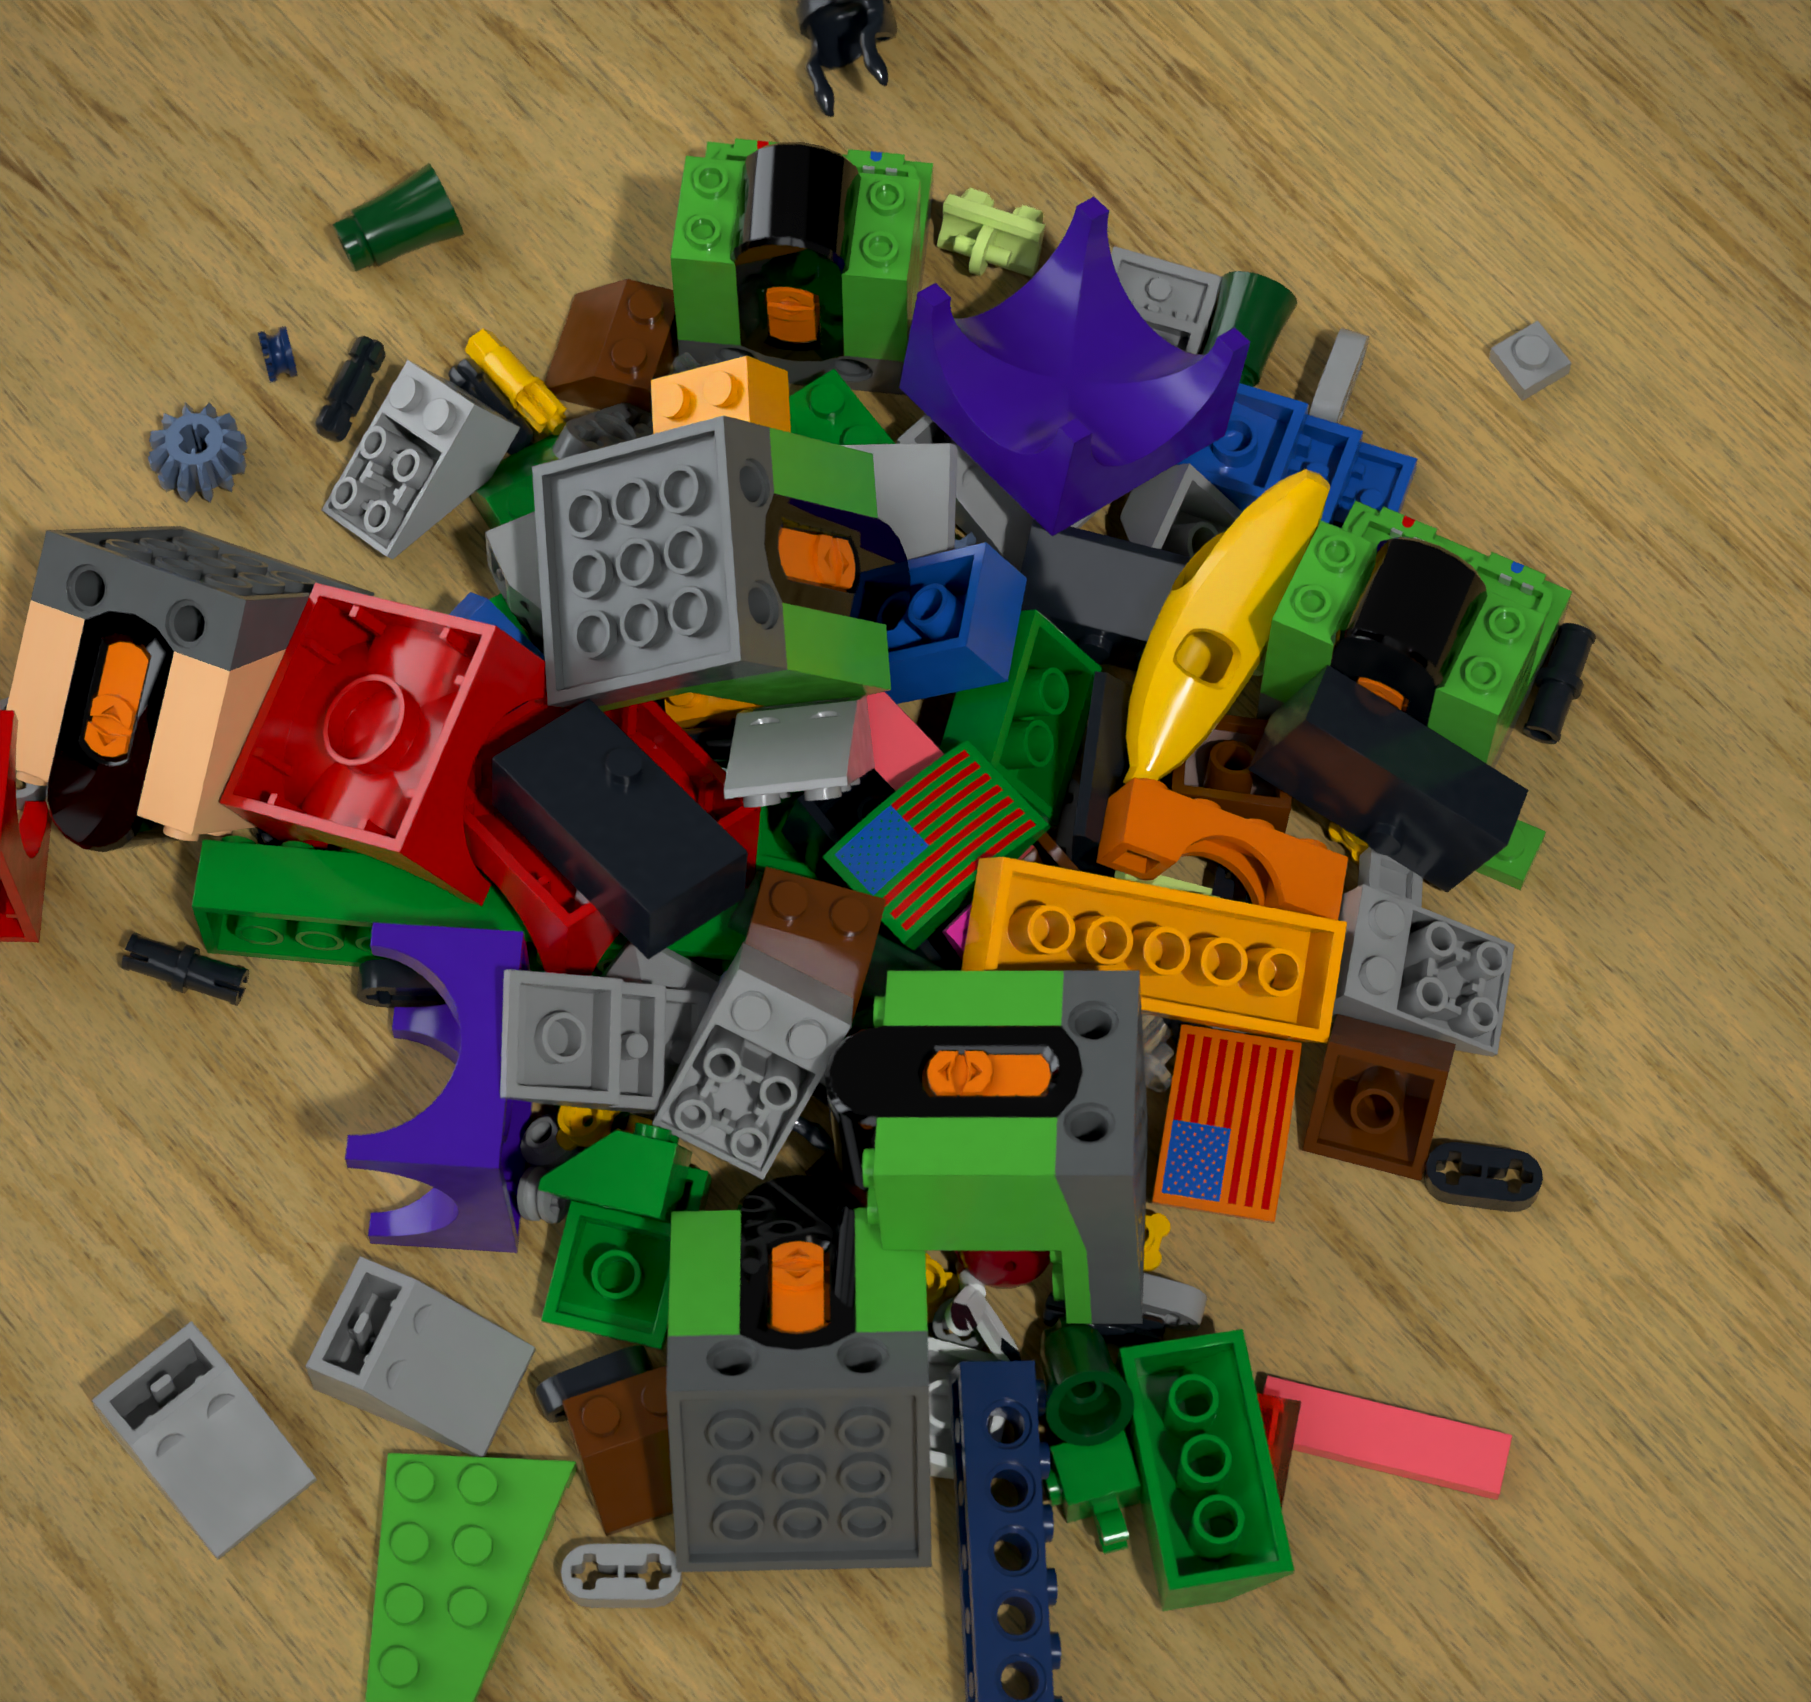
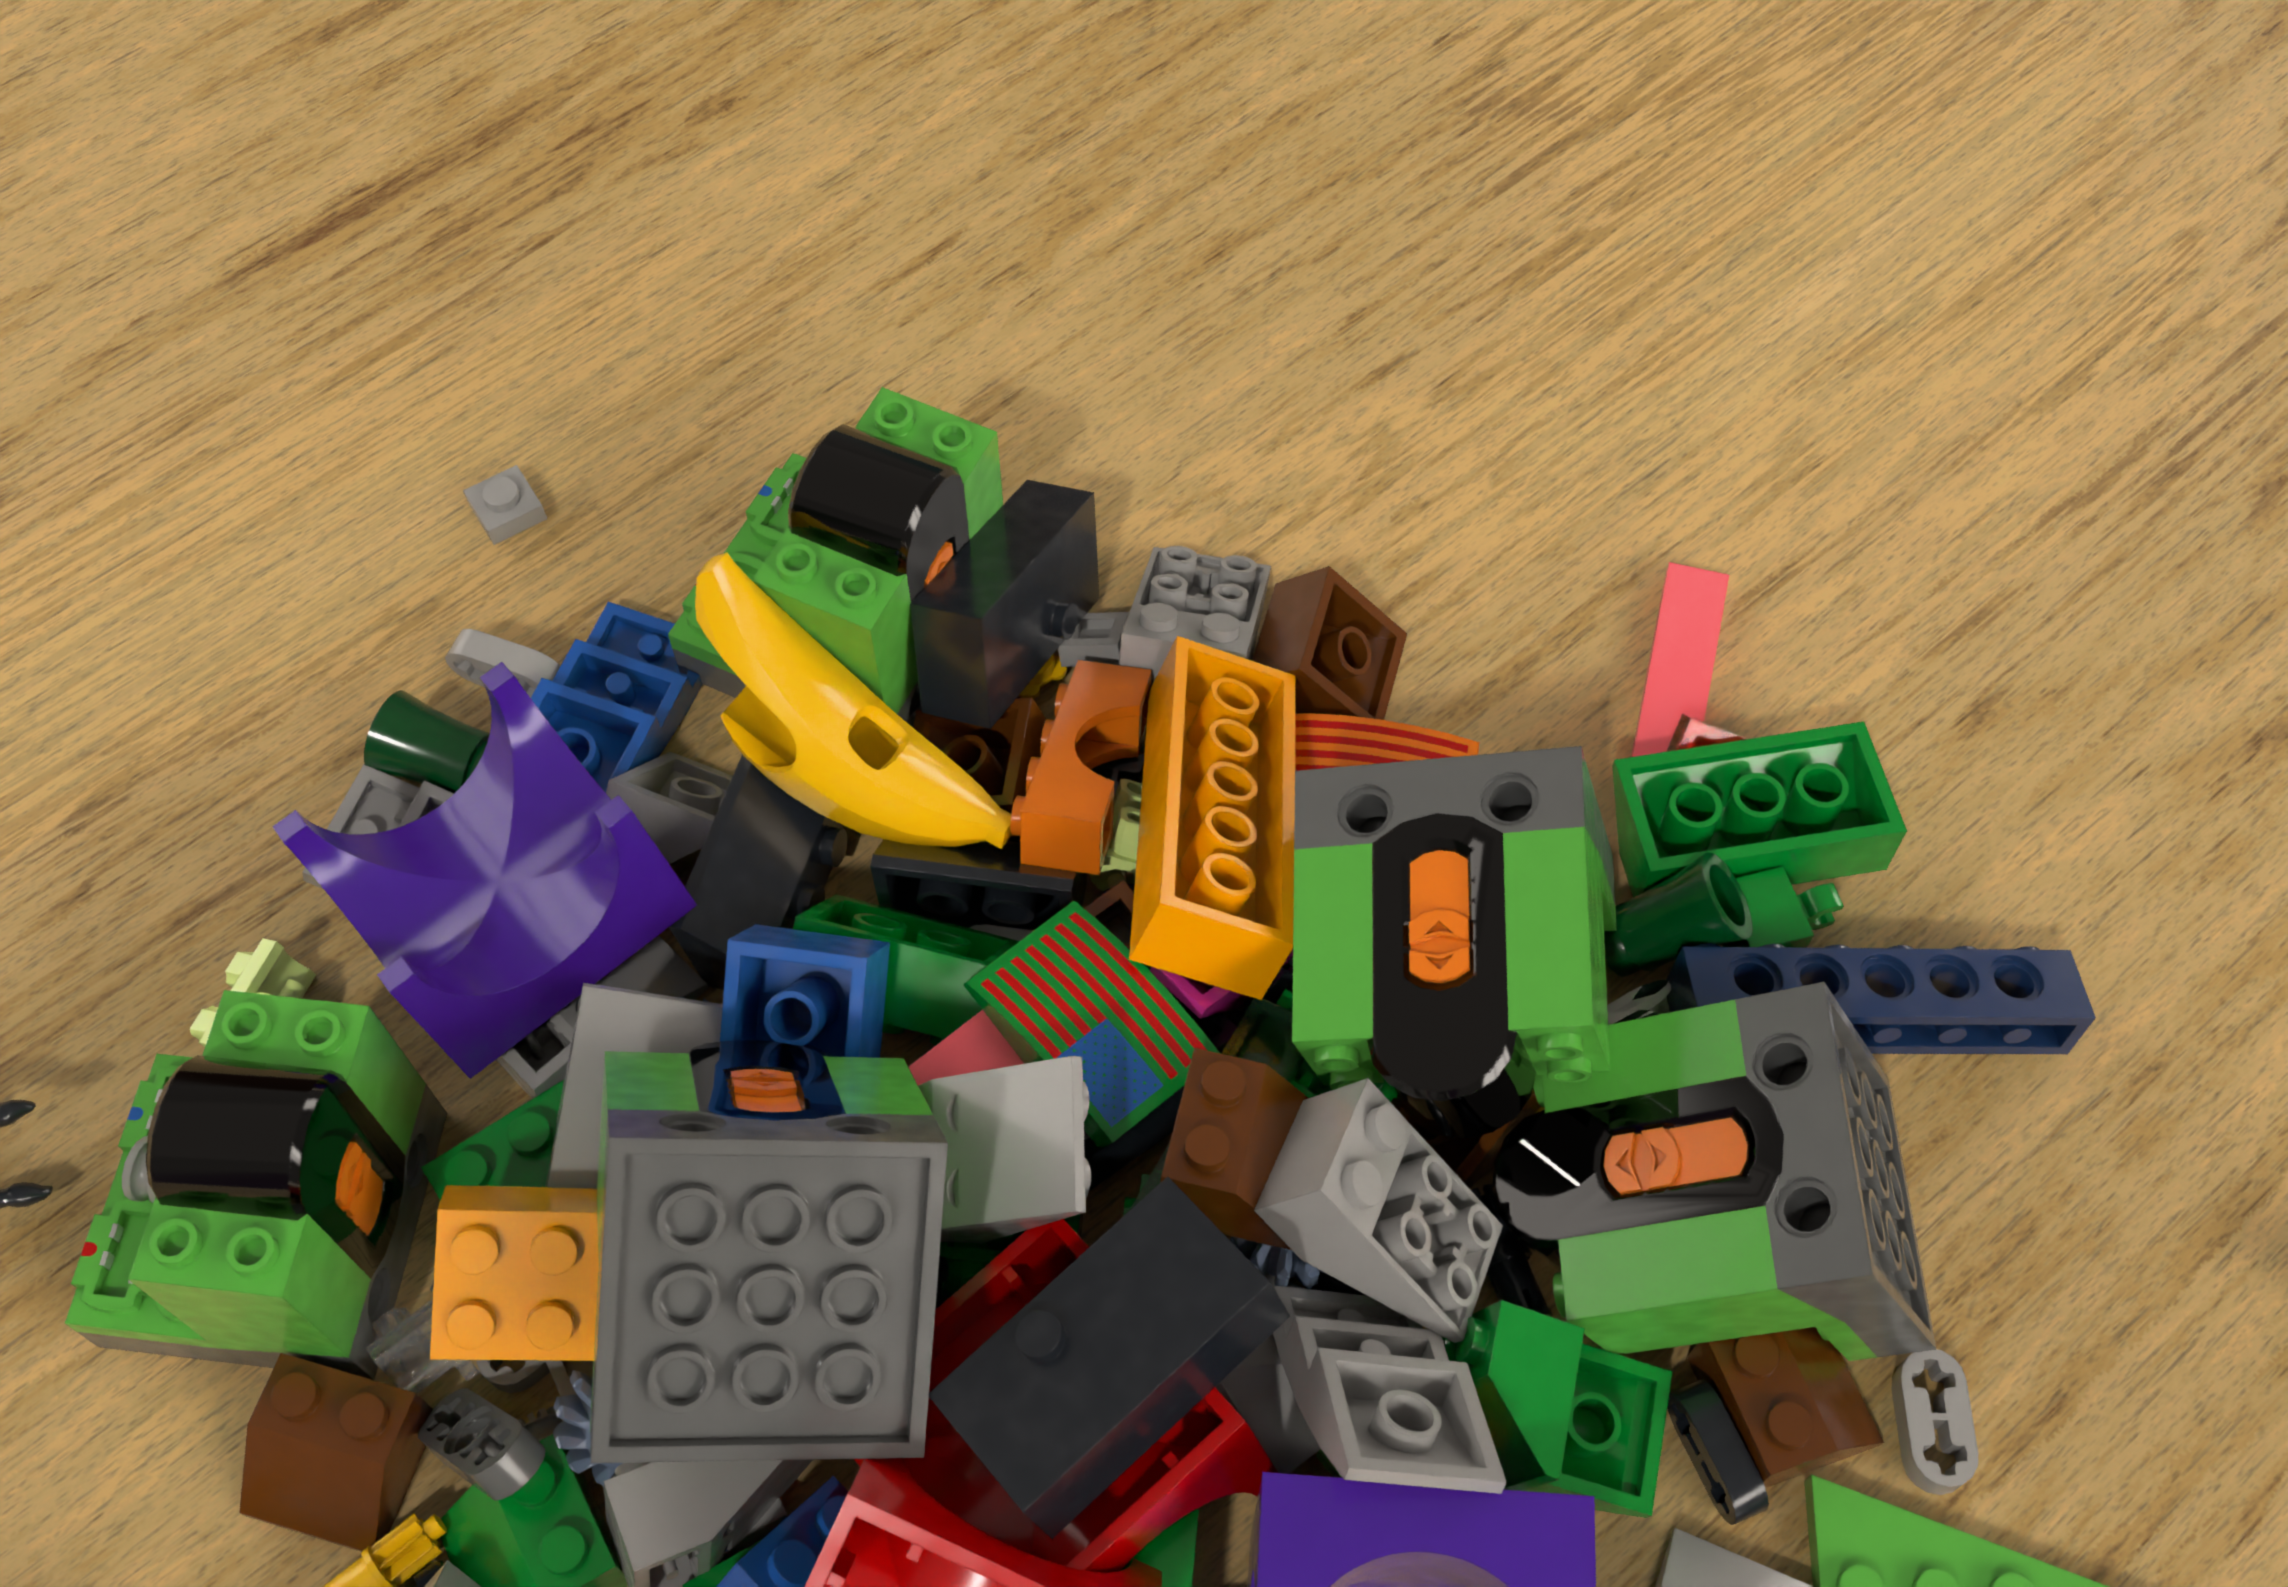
camera: 90 degrees left, 5 degrees down
(1483, 1191) = (1414, 580): black beam -> none

